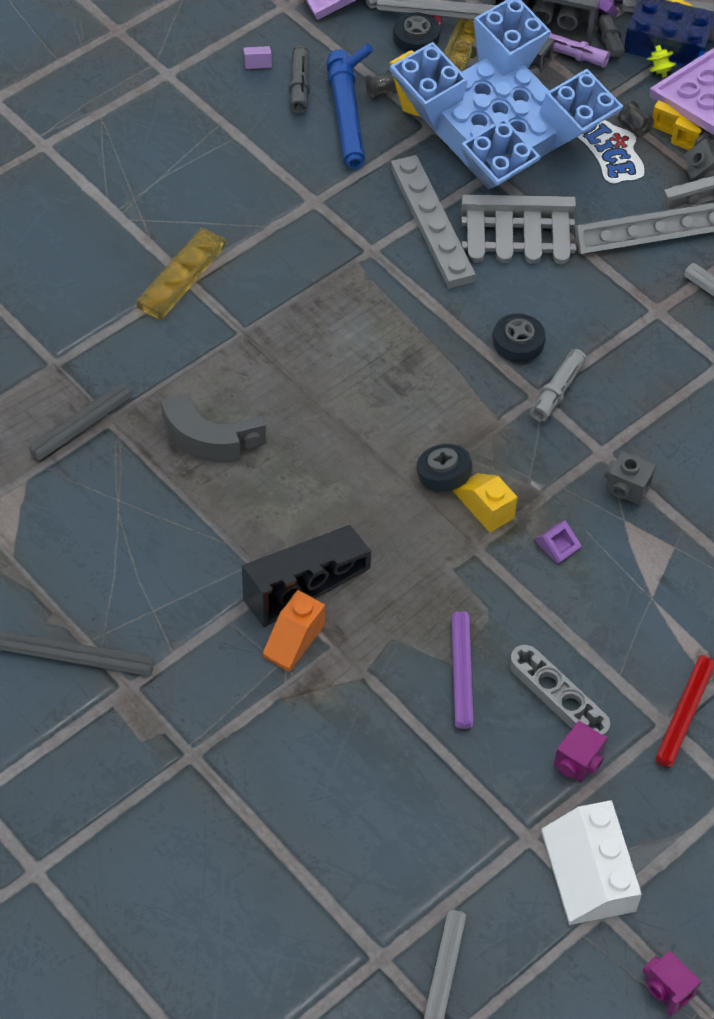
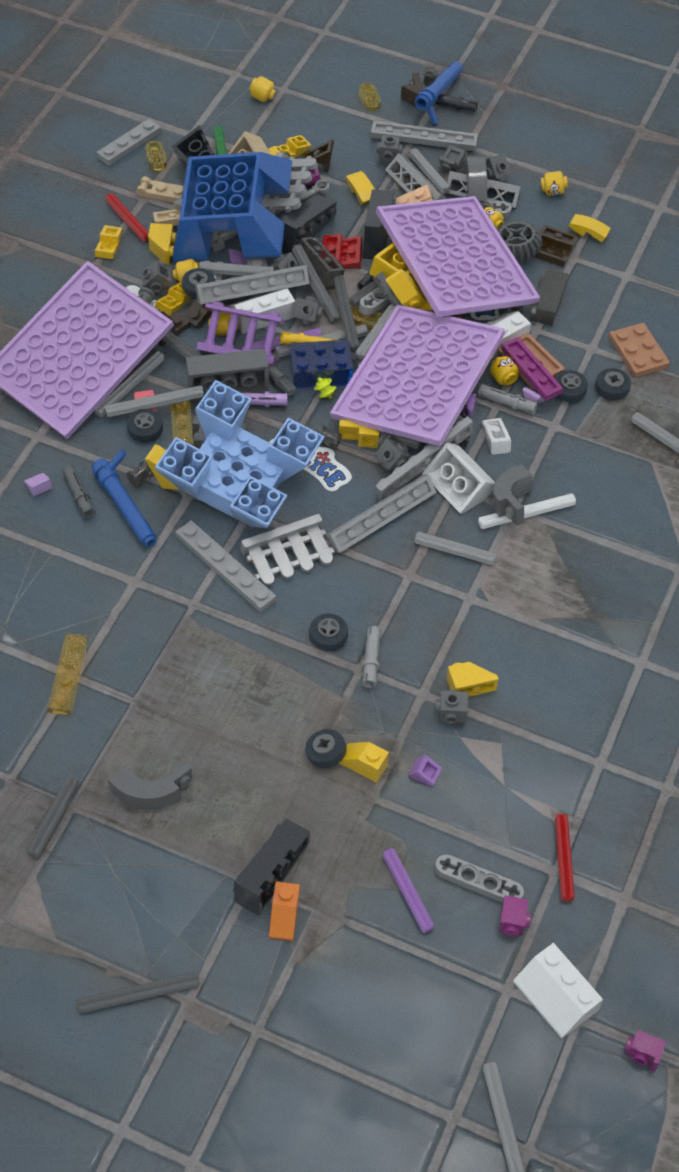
camera: 25 degrees left, 0 degrees up
(672, 456) = (471, 679): none -> yellow slope

